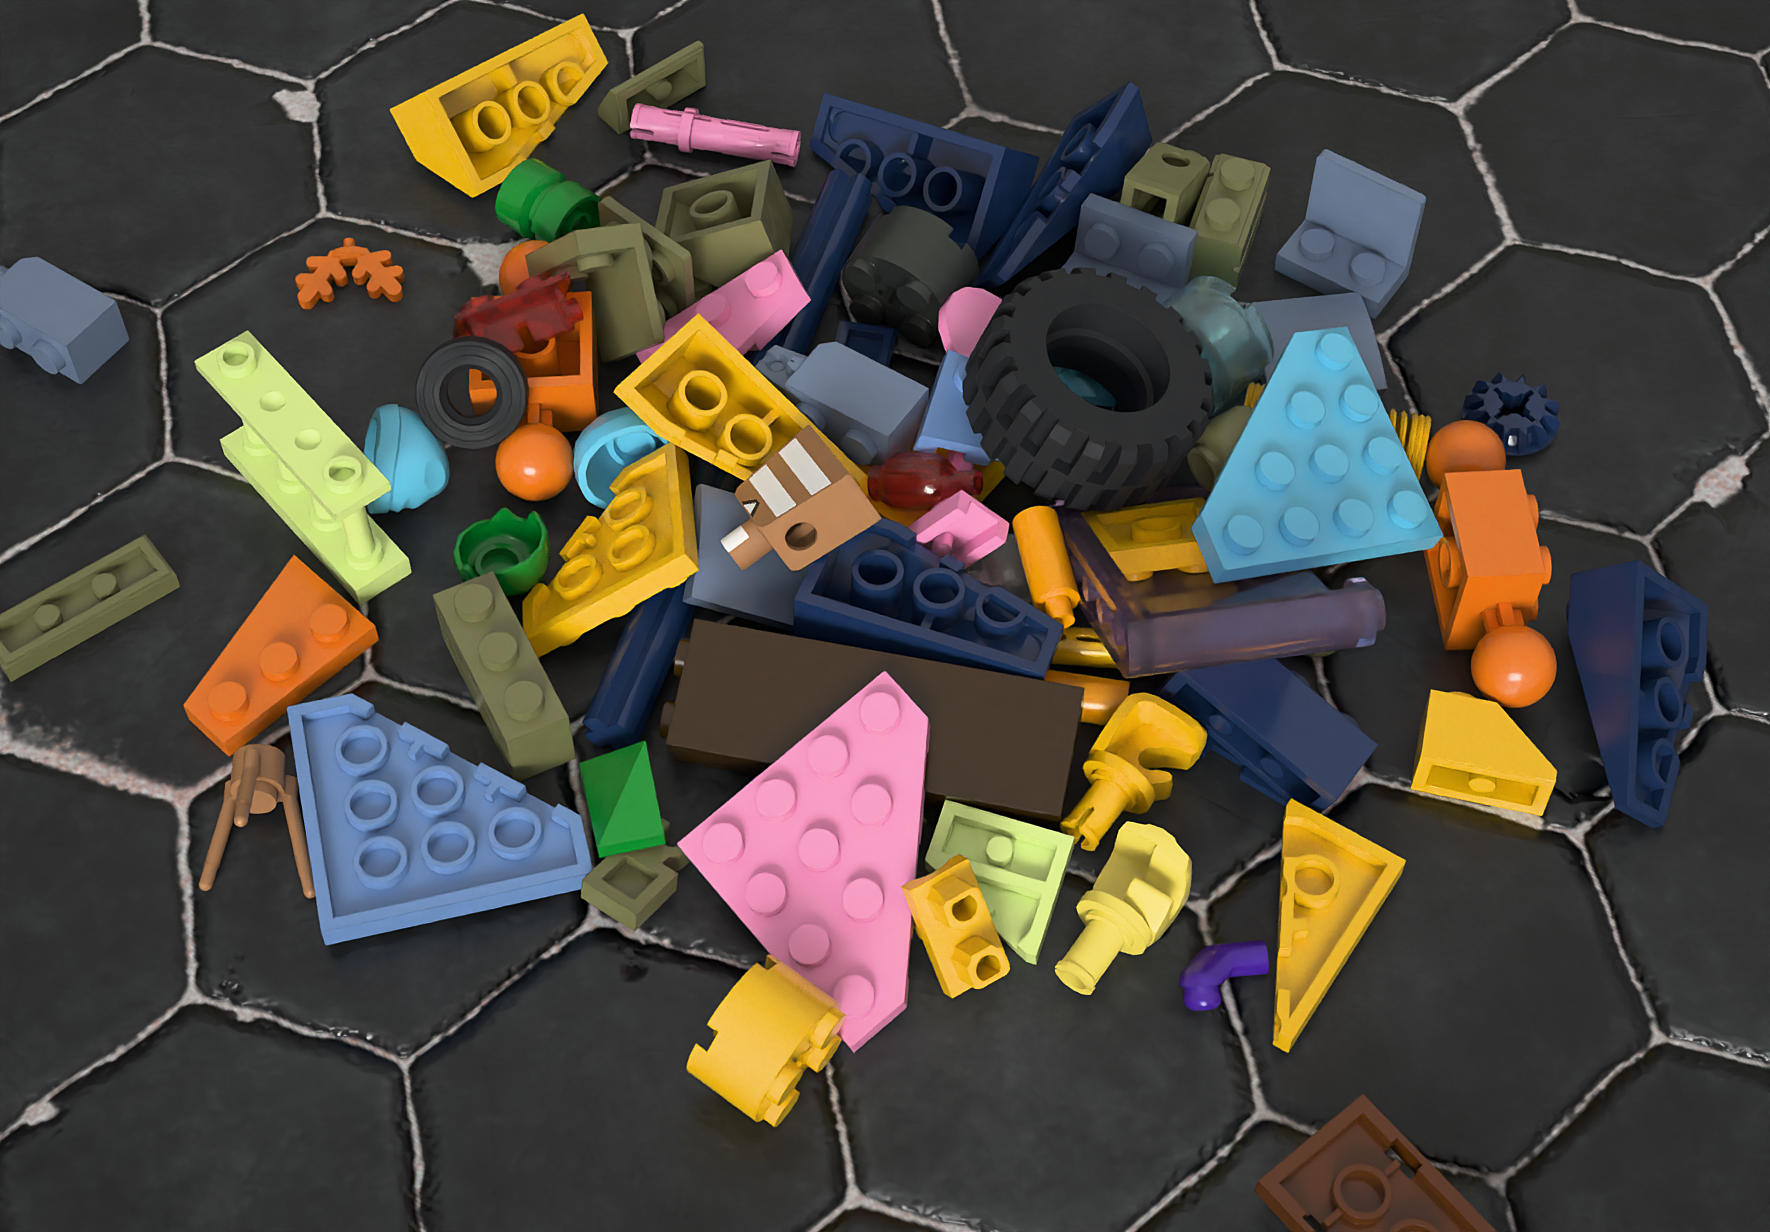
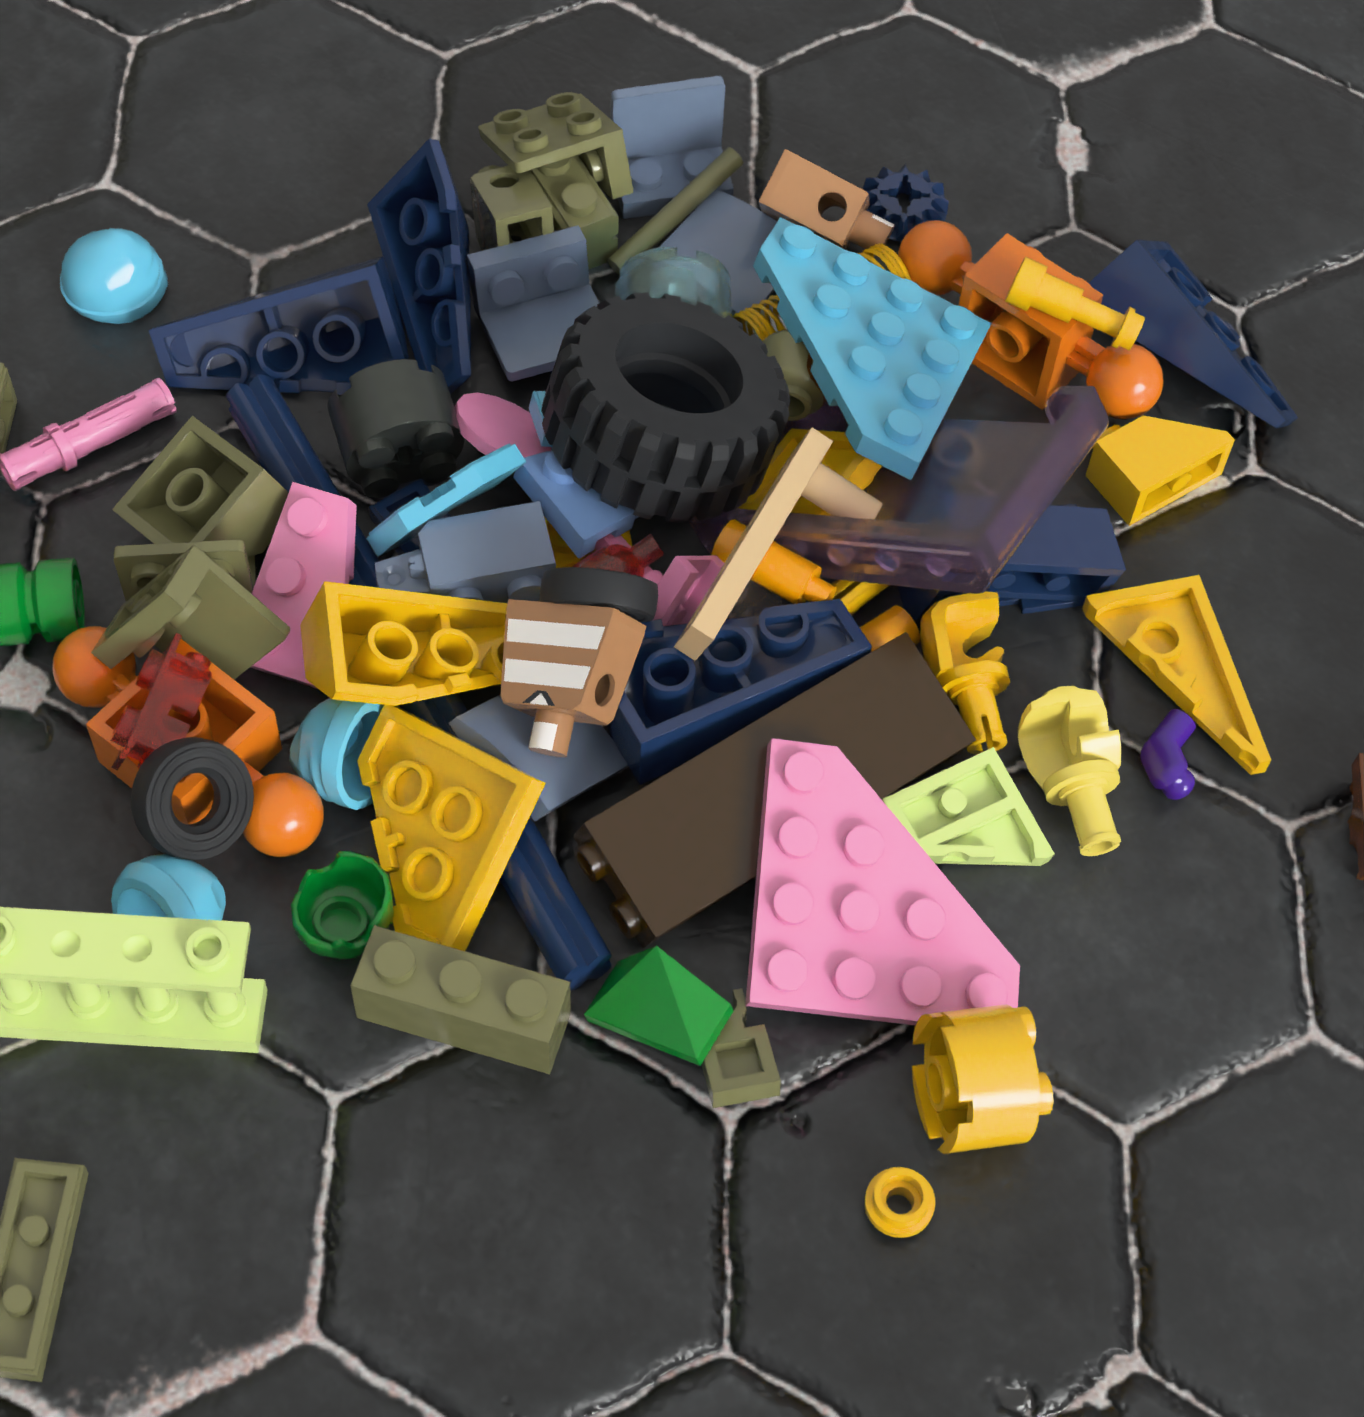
camera: 50 degrees left, 5 degrees up
(255, 788) = (373, 1260): medium nougat plant -> none
(278, 657) = (251, 1149): orange wing -> none
(414, 830) = (526, 1178): medium blue plate -> none
(624, 1061) = (907, 1184): none -> yellow plate
(853, 47) = (112, 276): none -> medium azure hat
(873, 471) = (601, 588): none -> black tyre
(884, 336) = (462, 487): none -> medium azure tile
(956, 927) = (997, 881): yellow hips -> none
(1114, 504) = (800, 476): none -> tan piece
(1277, 158) = (560, 130): none -> olive bracket
(1316, 284) = (678, 208): none -> olive bar
(1415, 353) = (803, 192): none -> medium nougat torso
(1478, 516) = (1065, 301): none -> yellow piece

